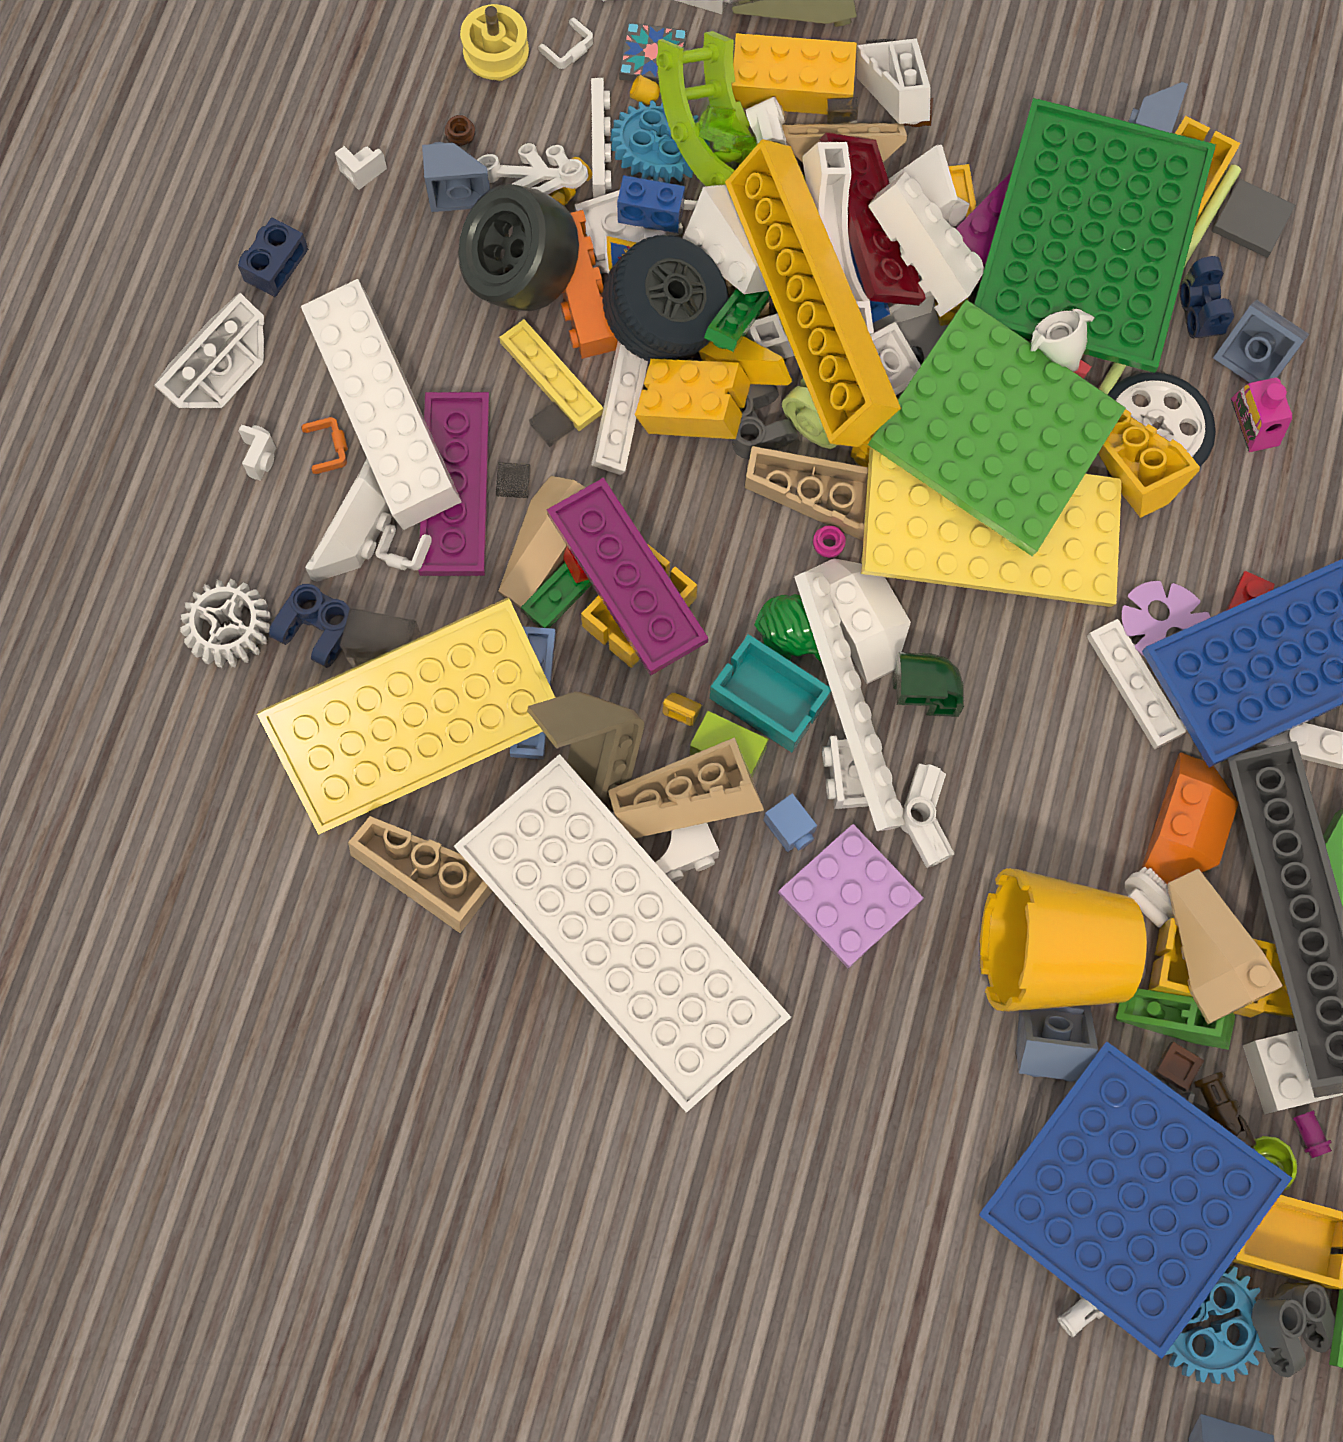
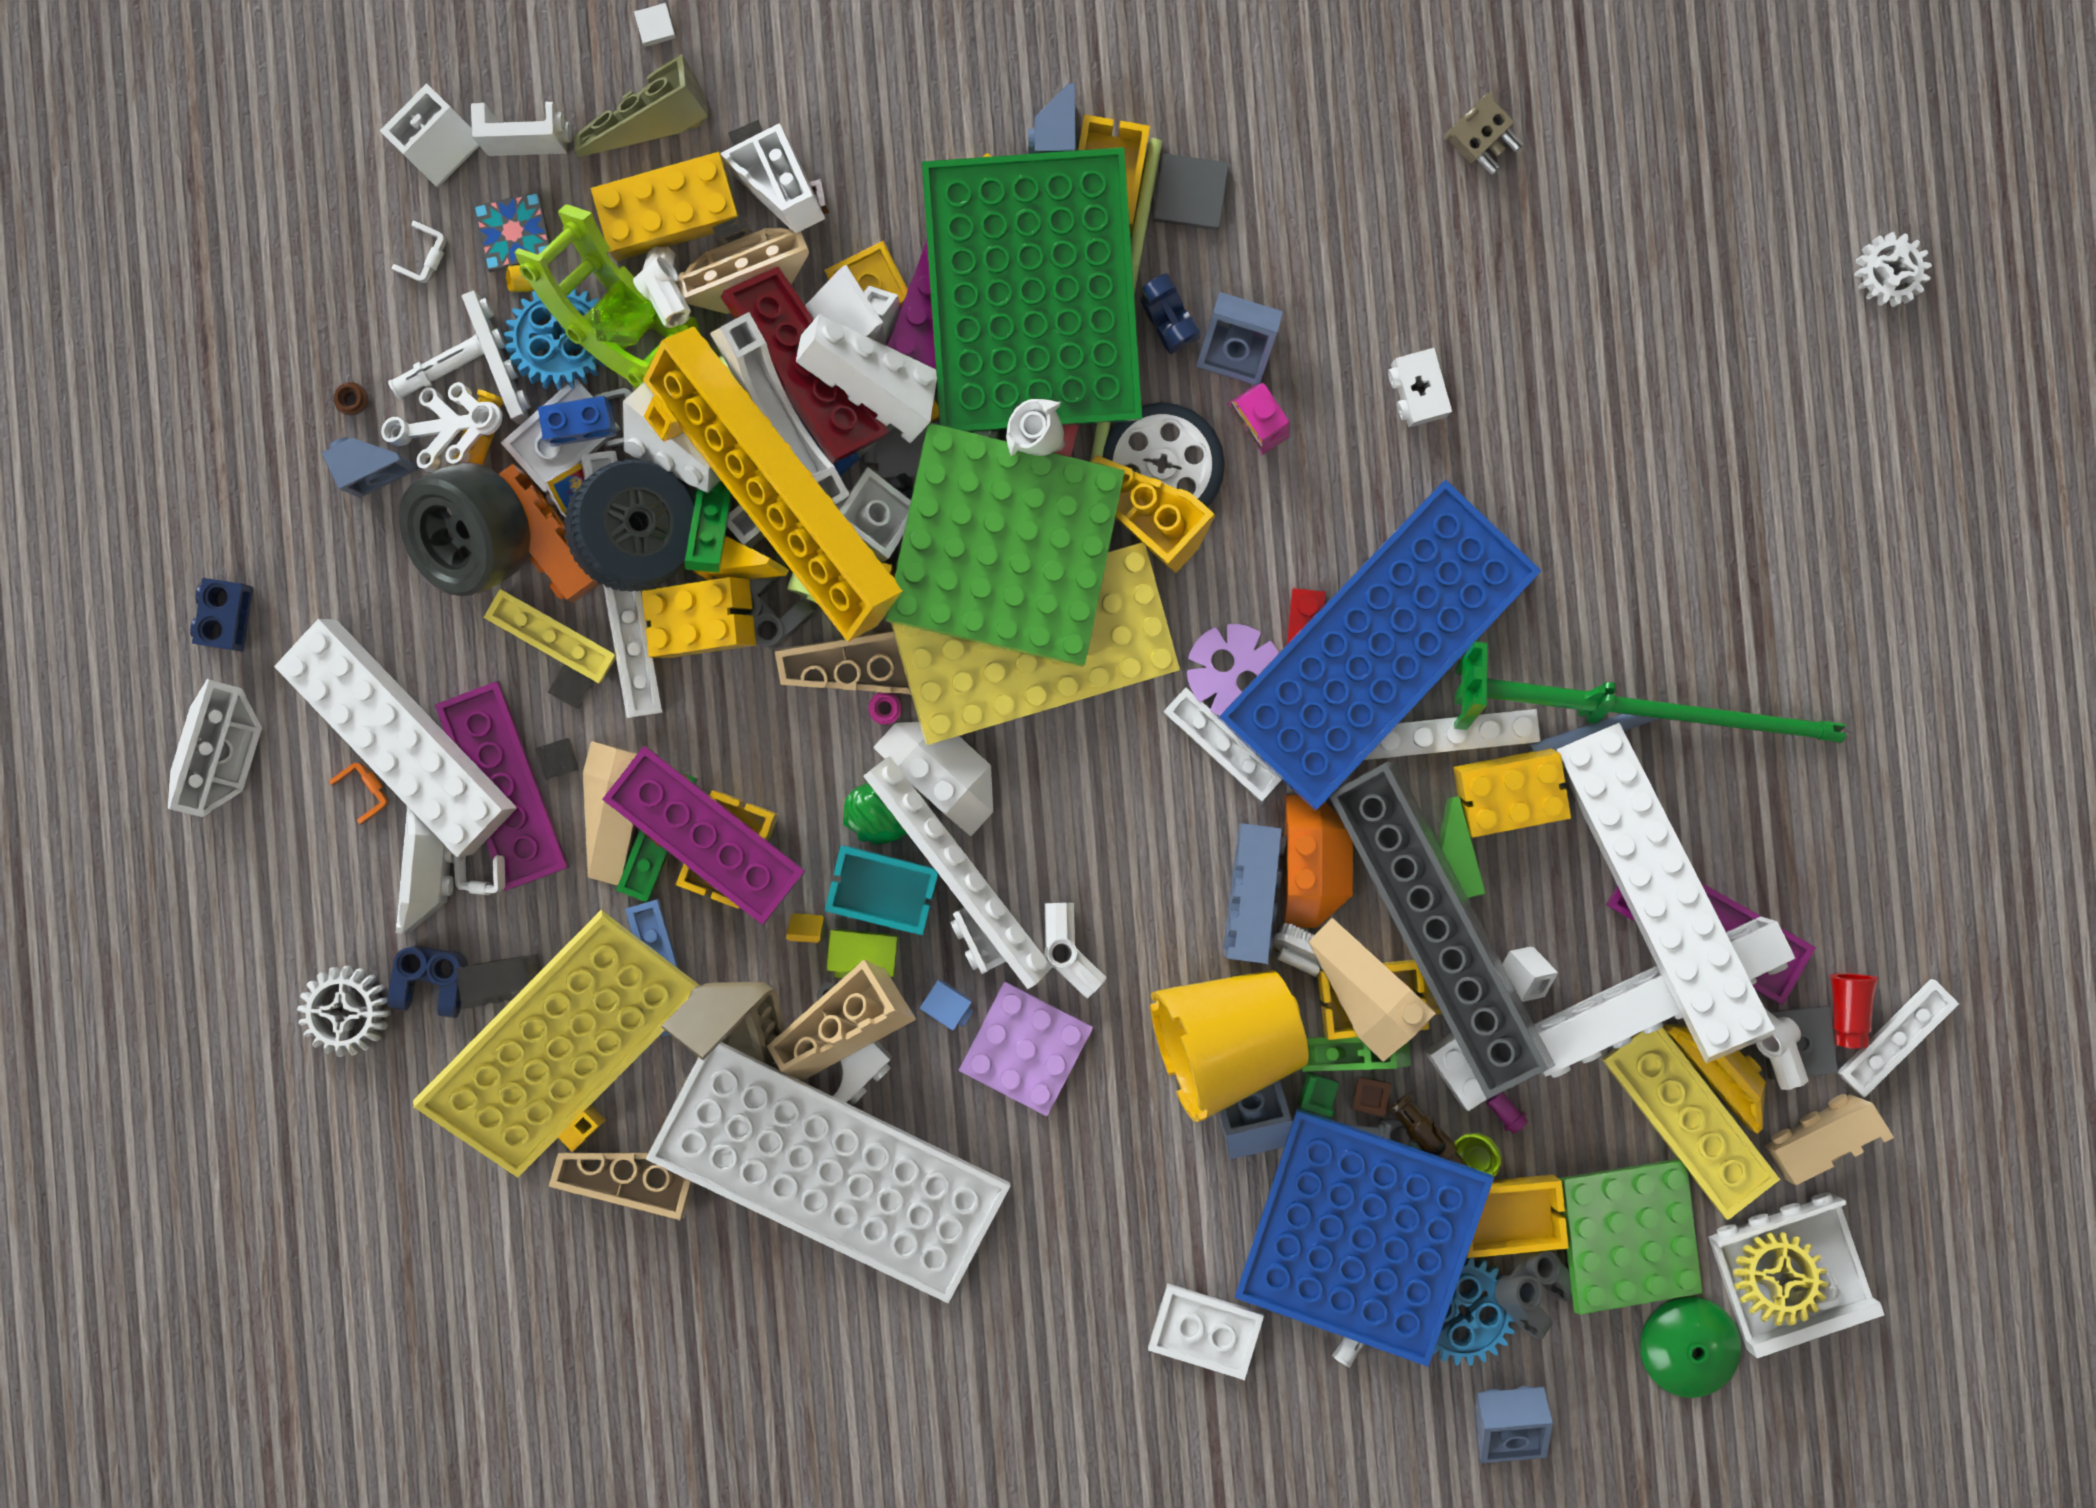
camera: 15 degrees left, 15 degrees up
(261, 452) = (302, 830): white bracket -> none
(362, 166) = (267, 476): white panel -> none
(400, 810) = (582, 1128): none -> yellow piece
(494, 42) = (344, 286): light yellow wheel -> none
(544, 131) = (426, 373): none -> white pin
(733, 209) = (662, 420): none -> yellow slope
(929, 682) = (1026, 824): dark green brick -> none
(936, 1242) = (1205, 1331): none -> white plate
(1123, 826) = (1253, 893): none -> sand blue wedge
(1127, 1040) = (1318, 1094): none -> green panel

